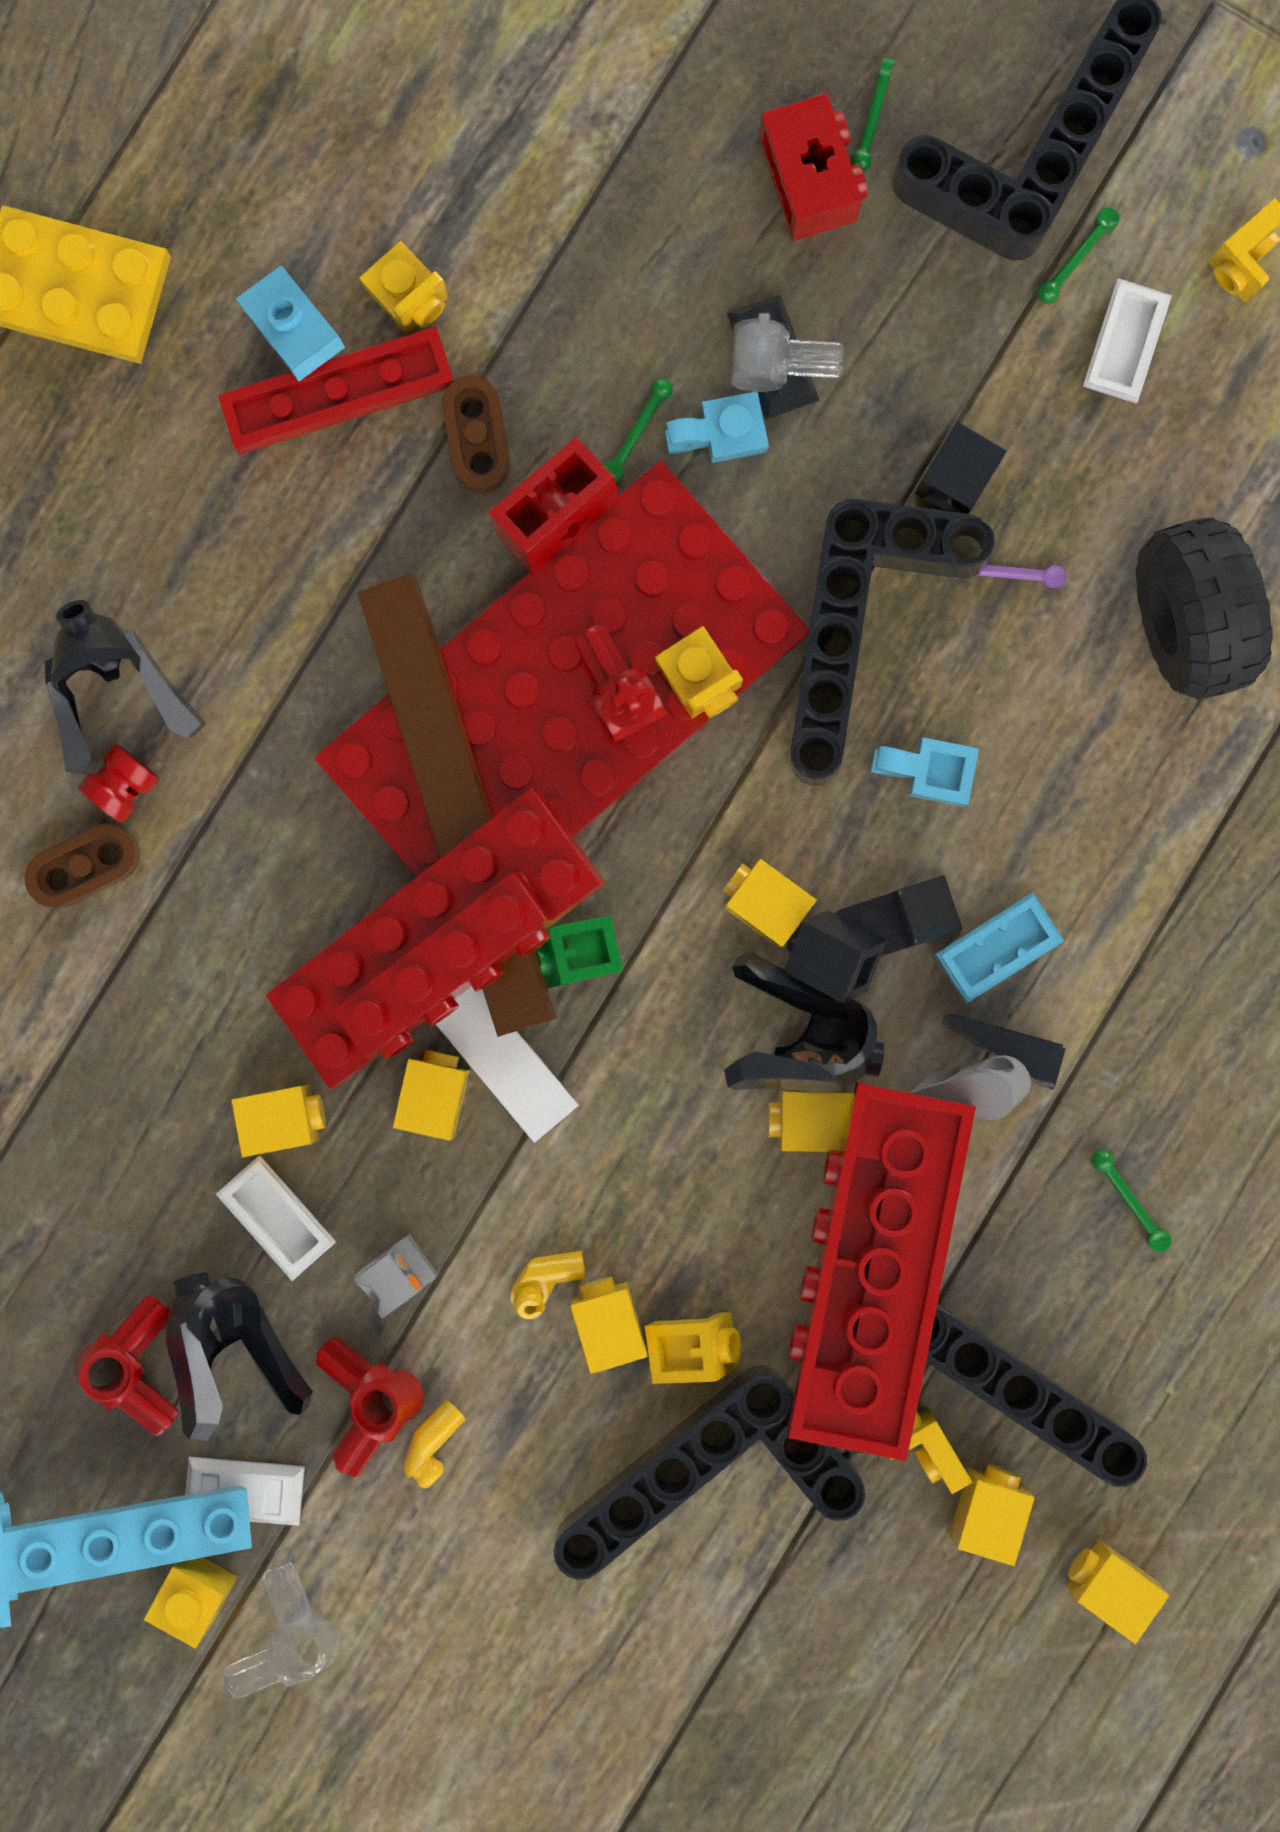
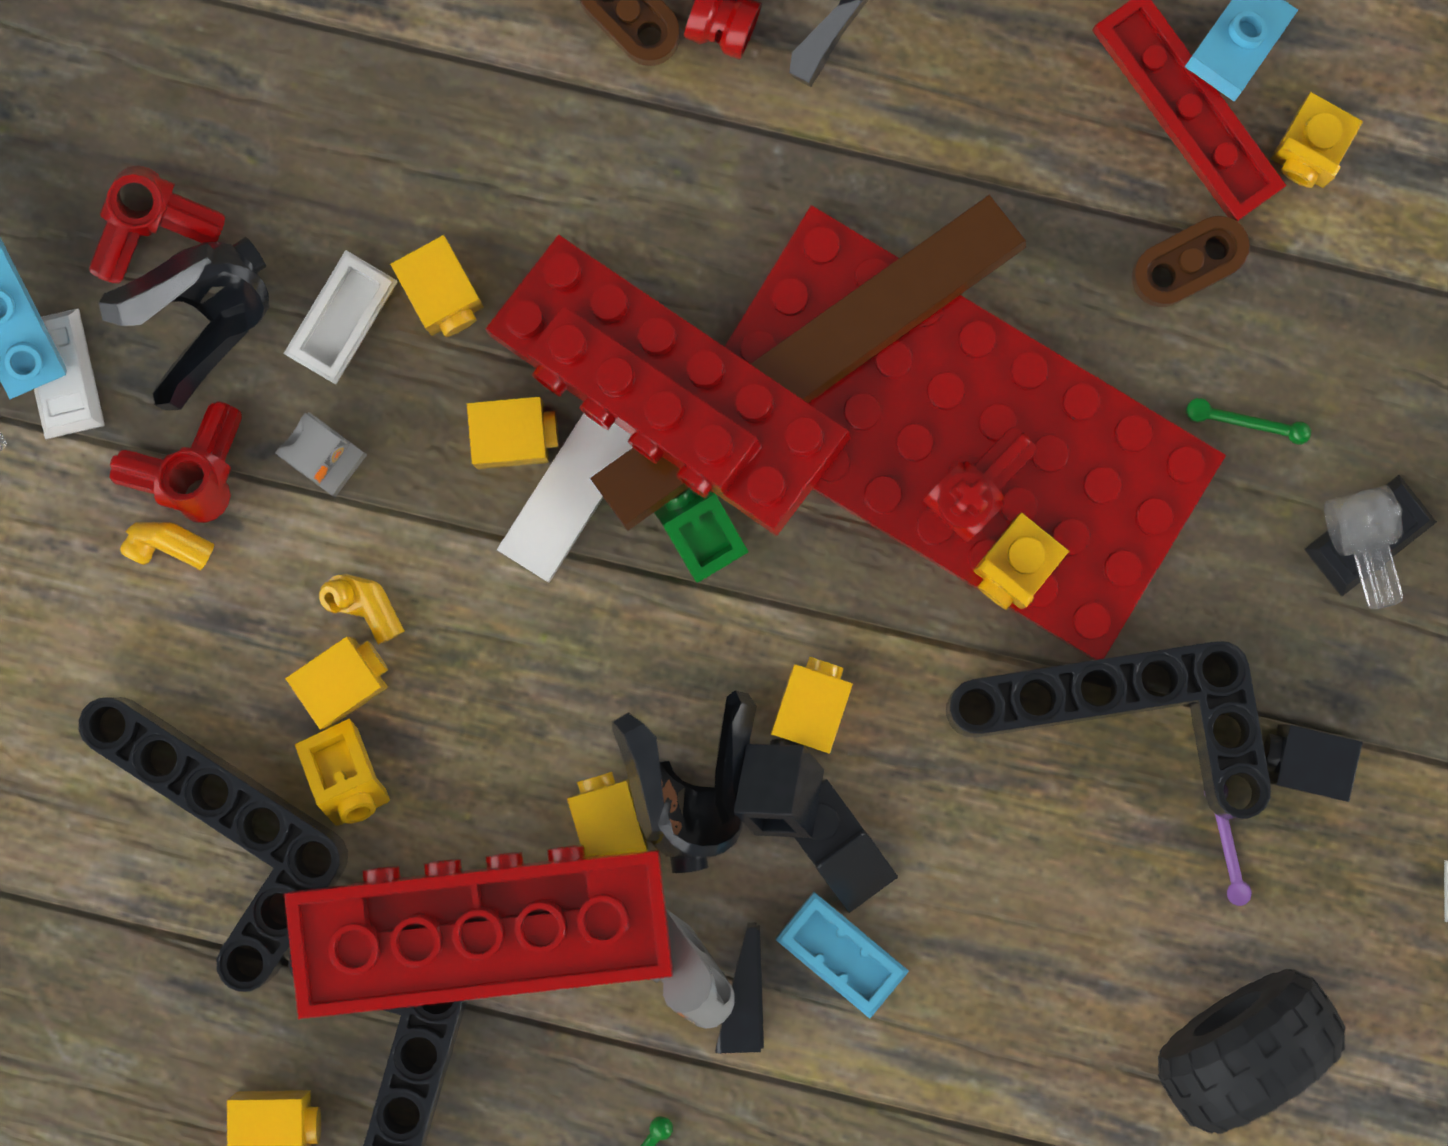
camera: 75 degrees right, 0 degrees up
(554, 505) = (1142, 363): red brick -> none
(728, 427) = (1282, 512): medium azure plate -> none
(937, 769) = (1001, 835): medium azure plate -> none
(937, 1454) = (313, 1053): yellow bracket -> none

